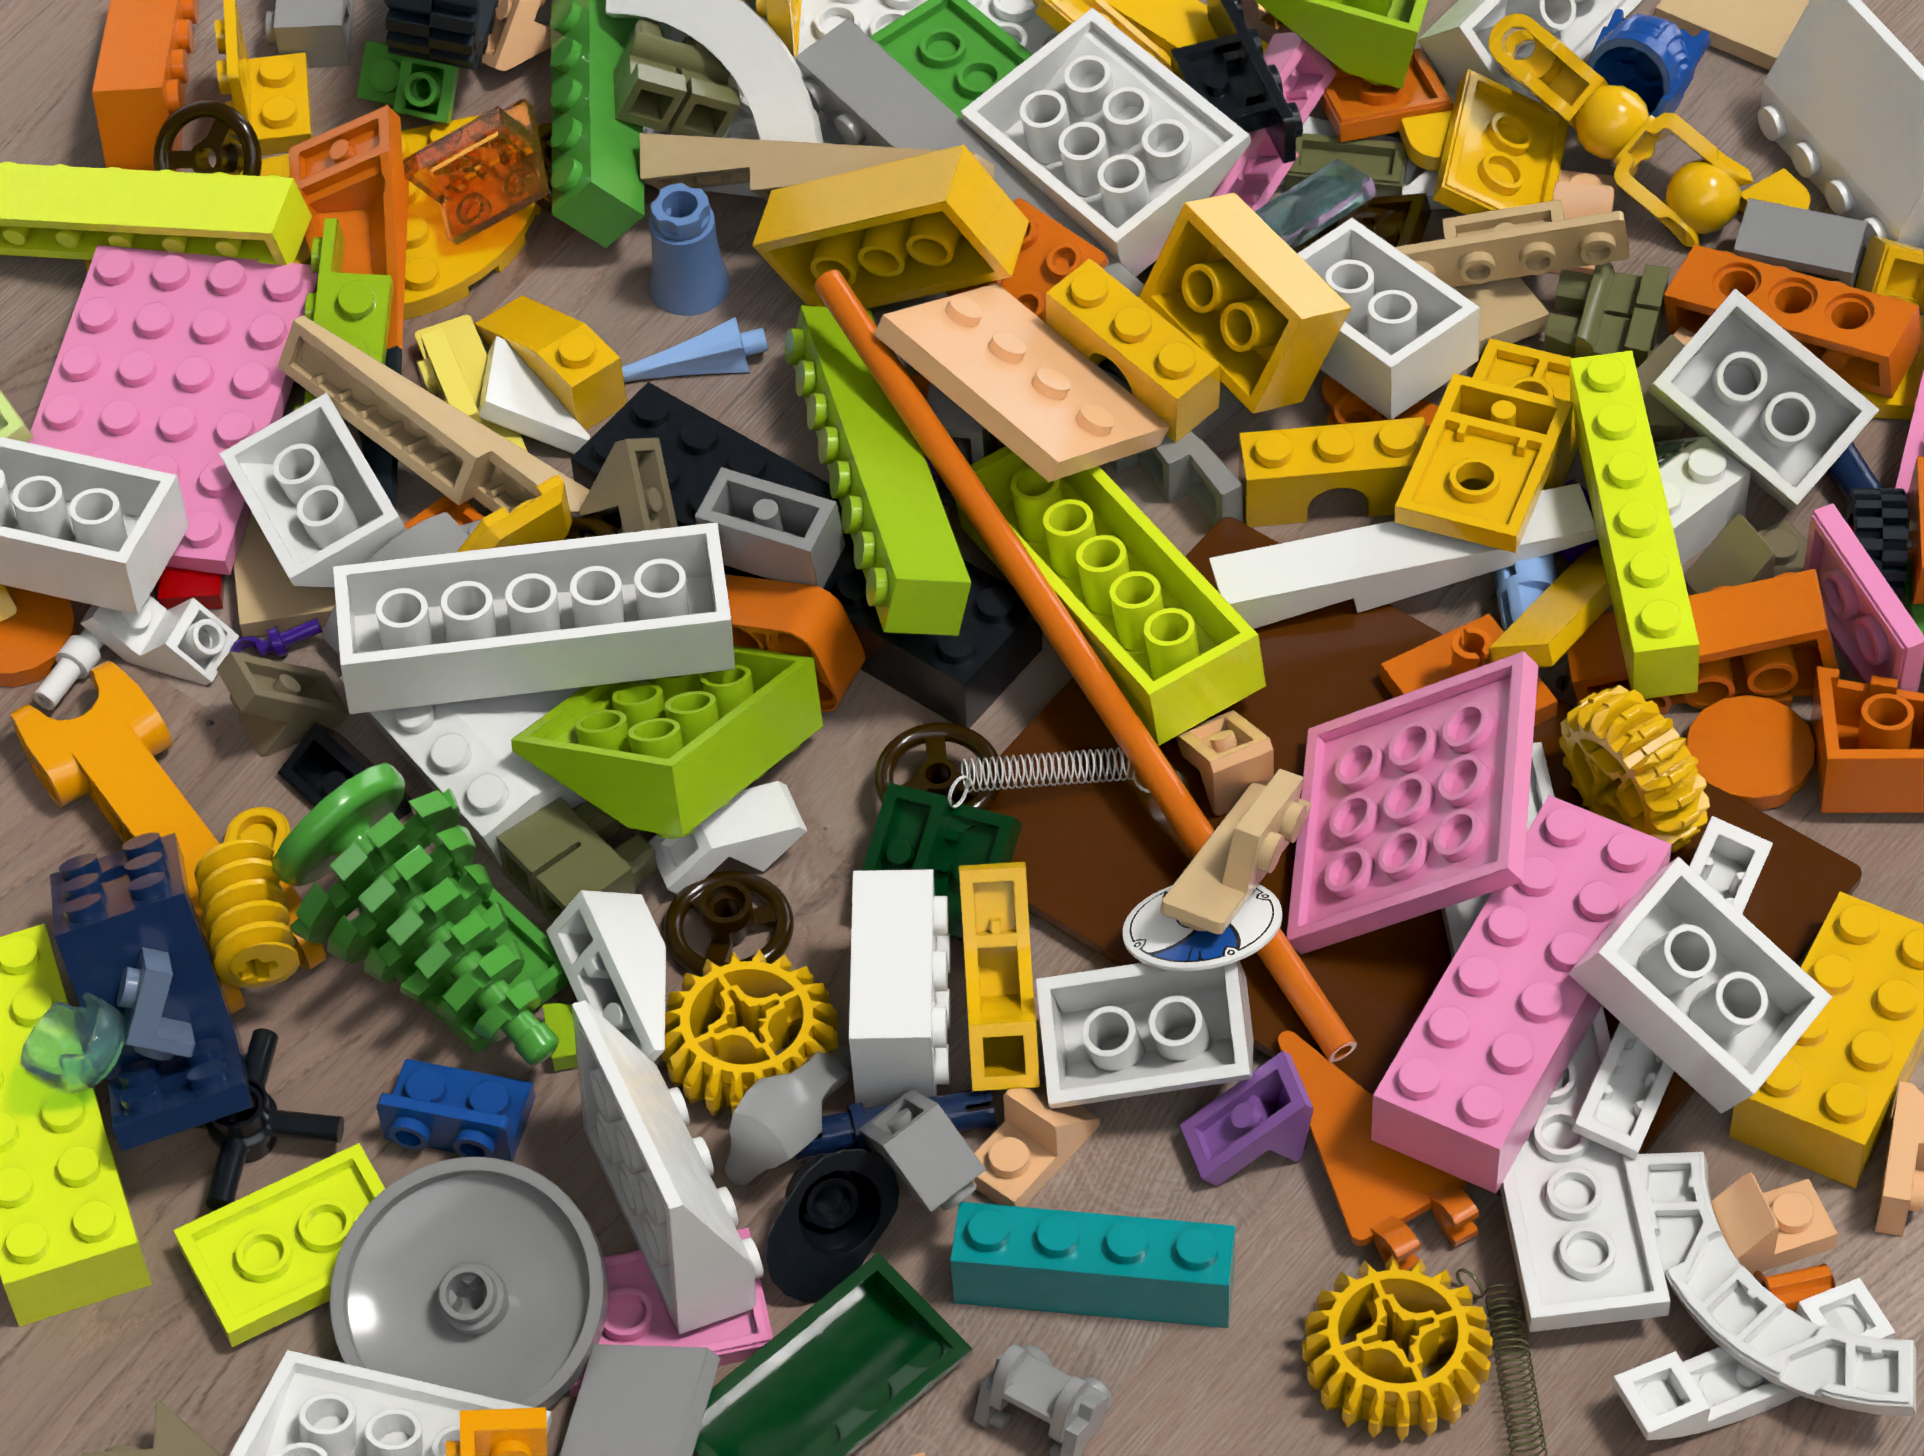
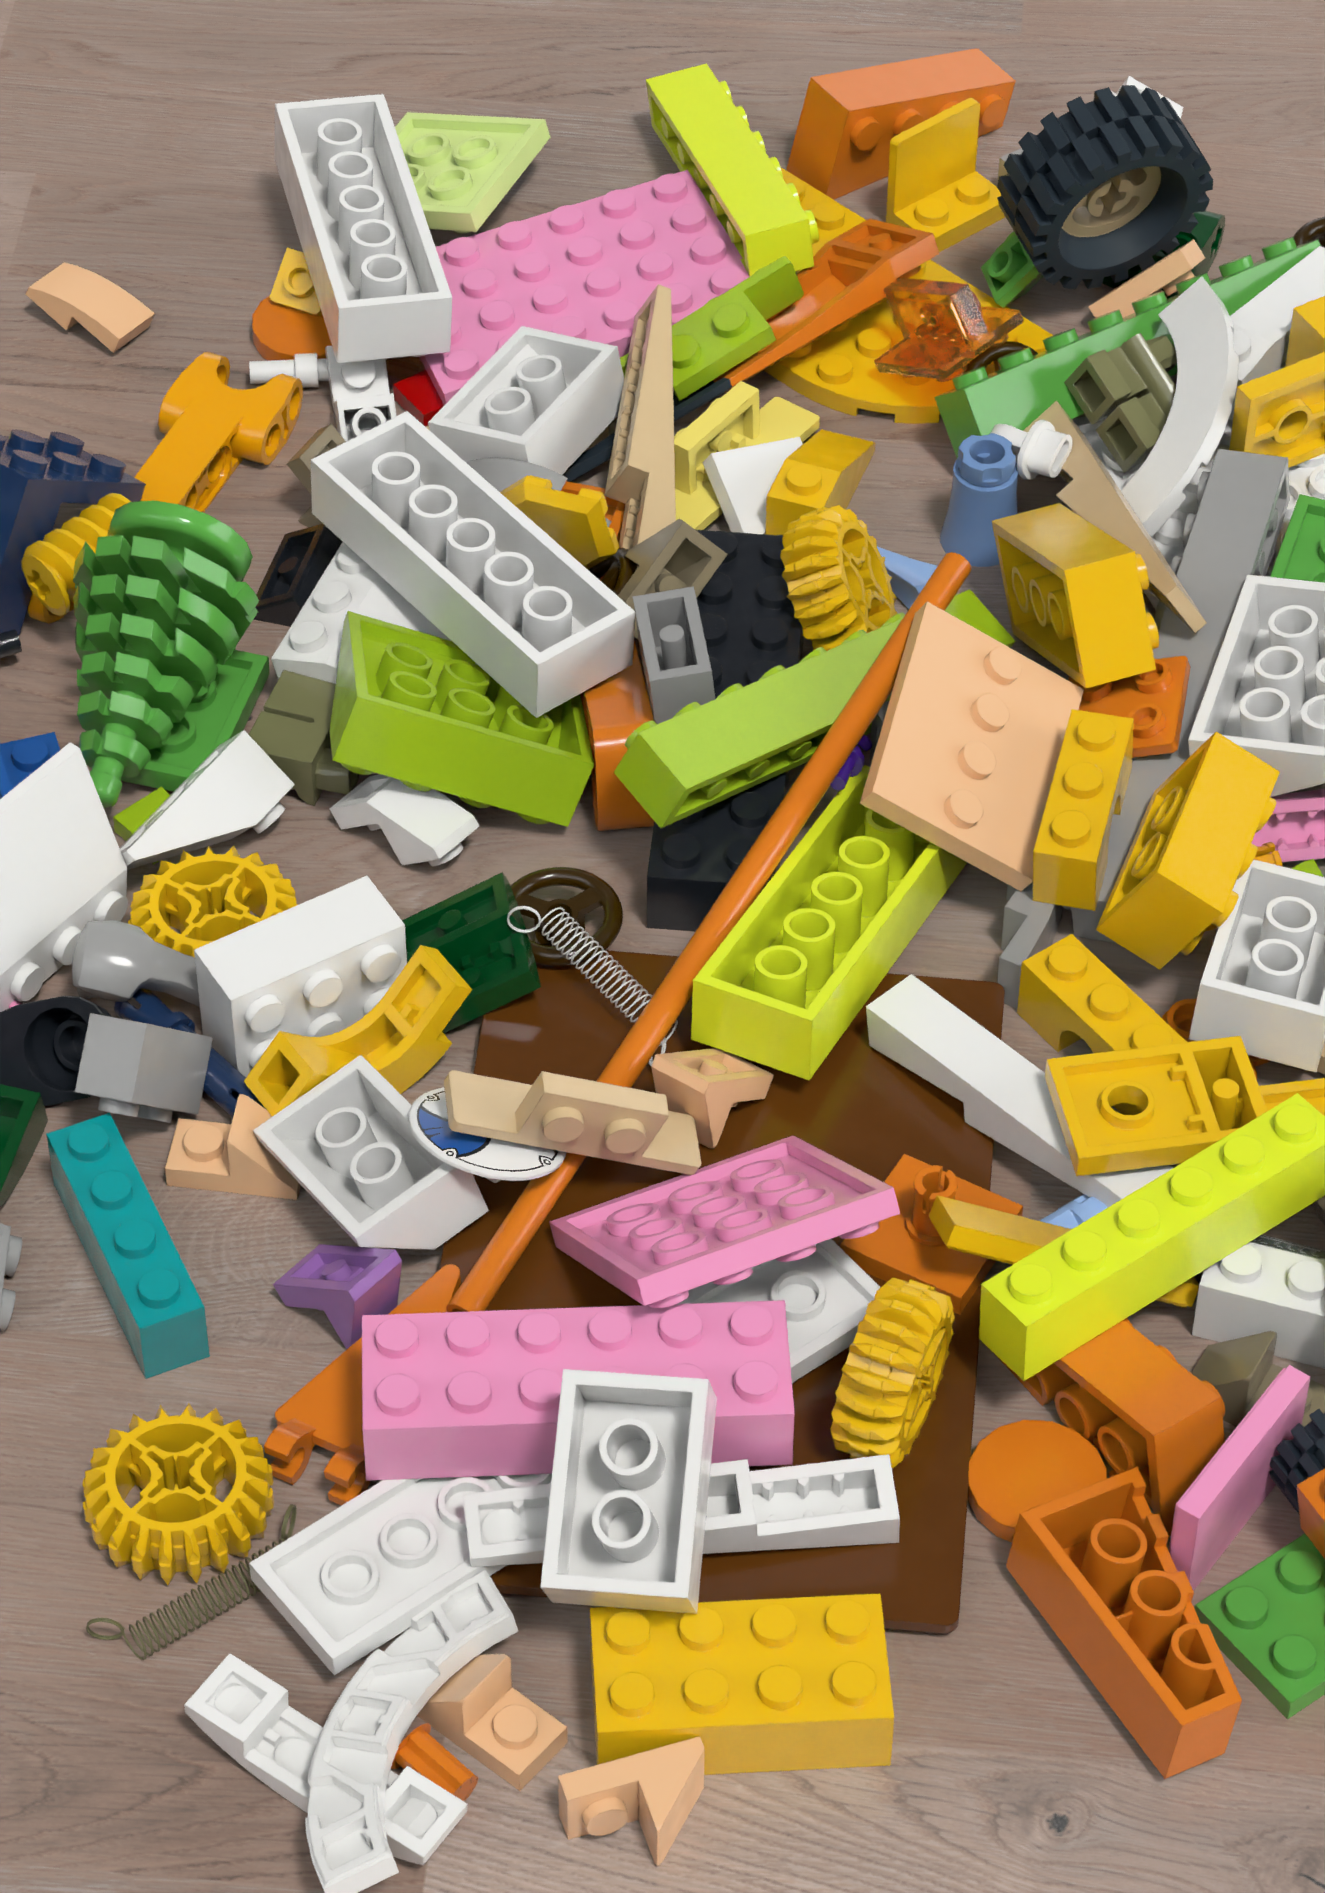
camera: 55 degrees right, 5 degrees down
(230, 154) = (829, 187): dark brown piece -> none
(697, 169) = (1039, 450): none -> white piece
(726, 389) = (835, 576): none -> yellow gear
(728, 912) = (327, 854): dark brown piece -> none

